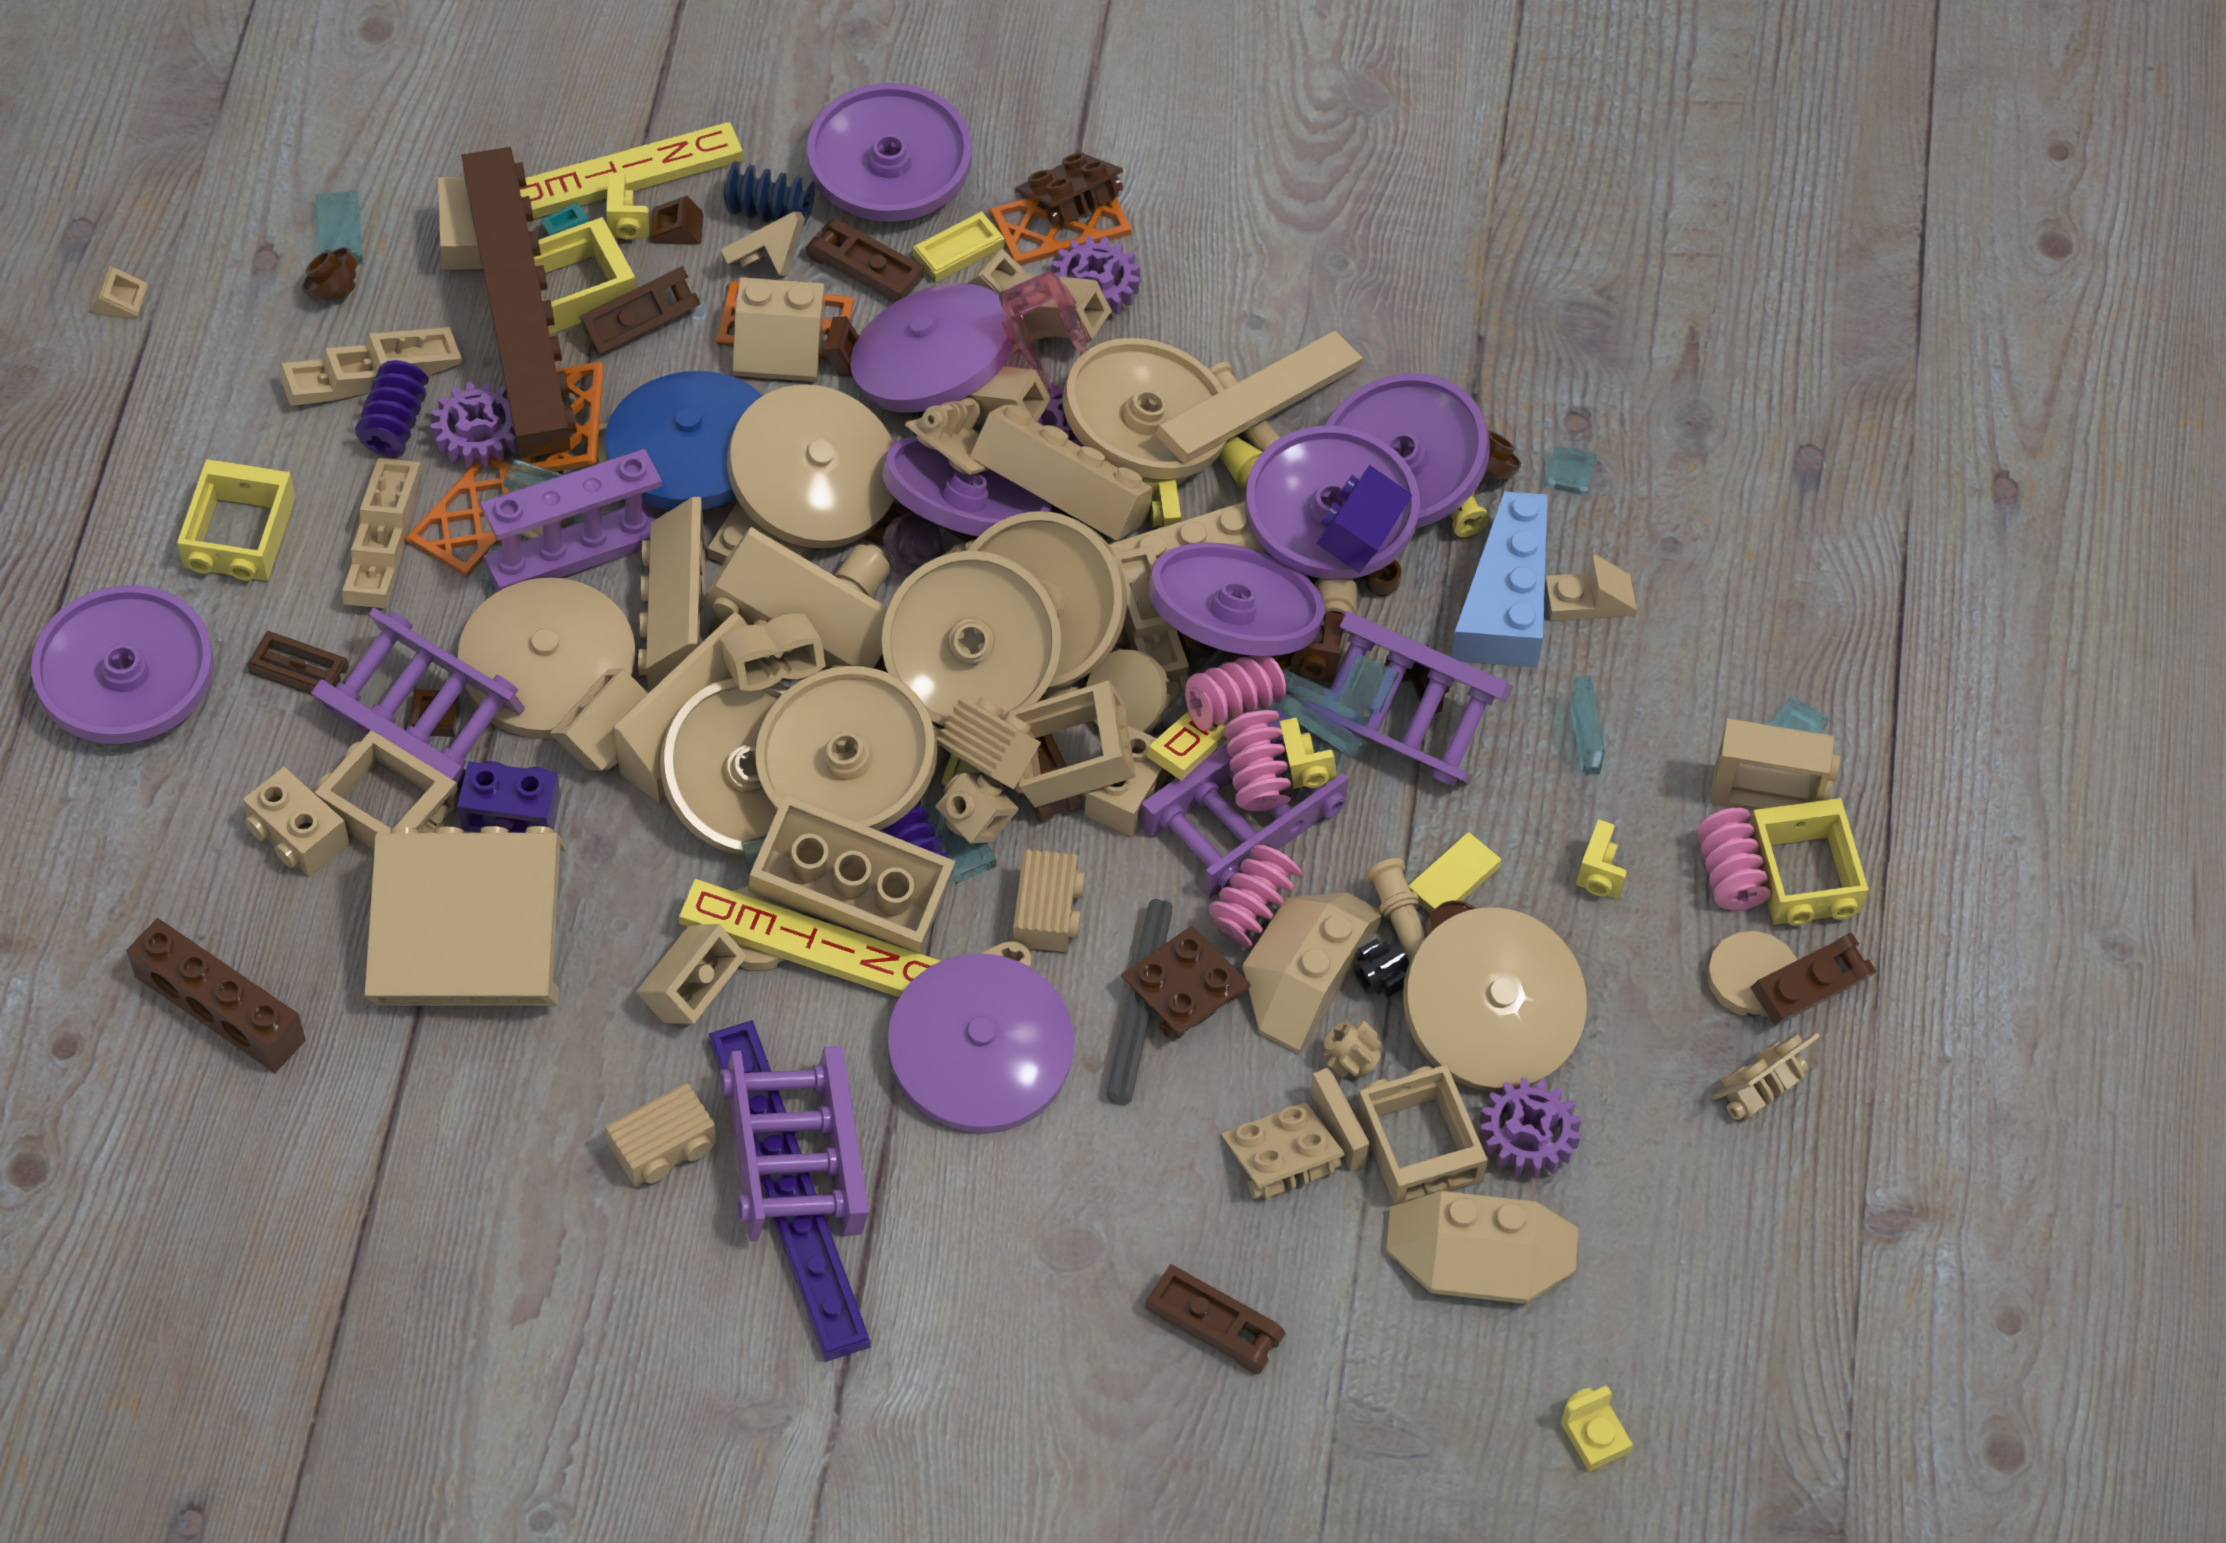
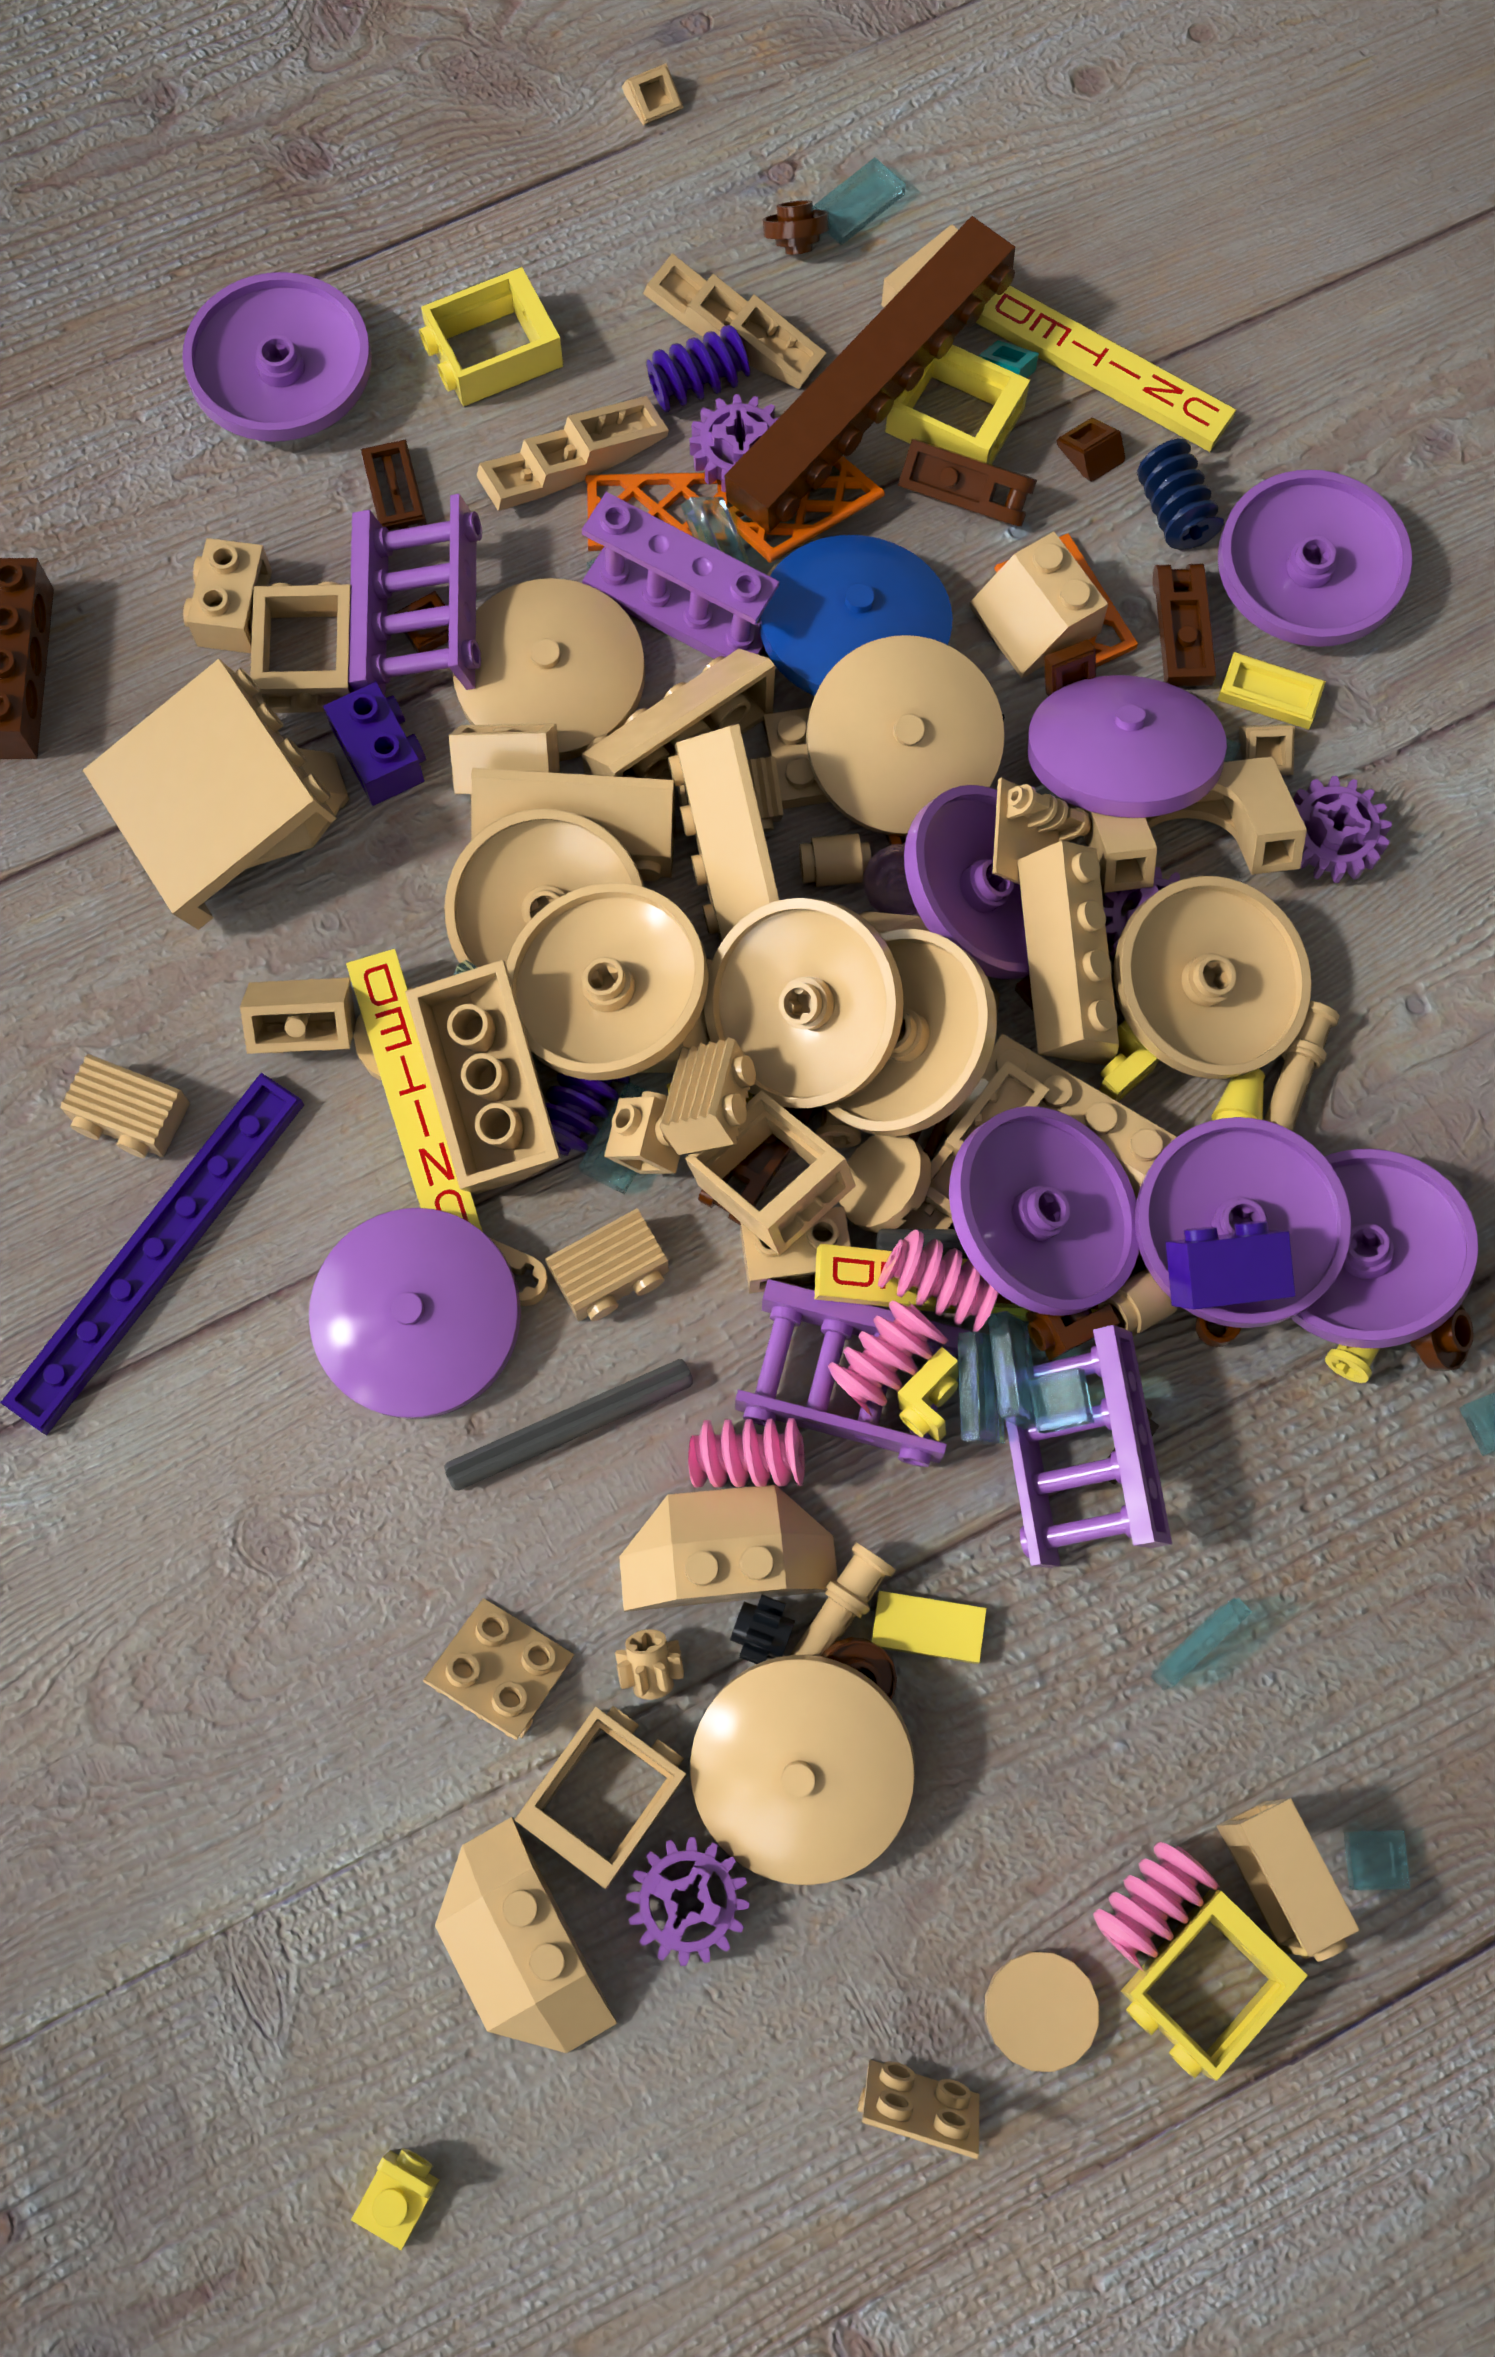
camera: 55 degrees right, 15 degrees up
(622, 216) = (1062, 390): light yellow bracket -> none
(777, 238) = (1128, 535): tan slope -> none
(778, 650) = (650, 842): tan brick -> none
(832, 1118) = (200, 1276): medium lavender fence -> none
(1034, 294) = (1227, 838): clear pink piece -> none
(1049, 246) = (1386, 792): orange window -> none
(1073, 186) = (1434, 733): reddish brown hinge -> none
(1185, 982) = (609, 1454): reddish brown hinge -> none
(1214, 1318) = (269, 1731): reddish brown plate -> none
(1258, 397) = (1317, 1068): tan tile -> none
(1339, 1118) = (565, 1704): tan tile -> none
(1506, 597) = (1287, 1459): light blue wedge -> none
(1595, 594) = (1366, 1542): tan slope -> none
(1596, 870) = (1056, 1758): light yellow bracket -> none
(1812, 979) = (1073, 2084): reddish brown plate -> none

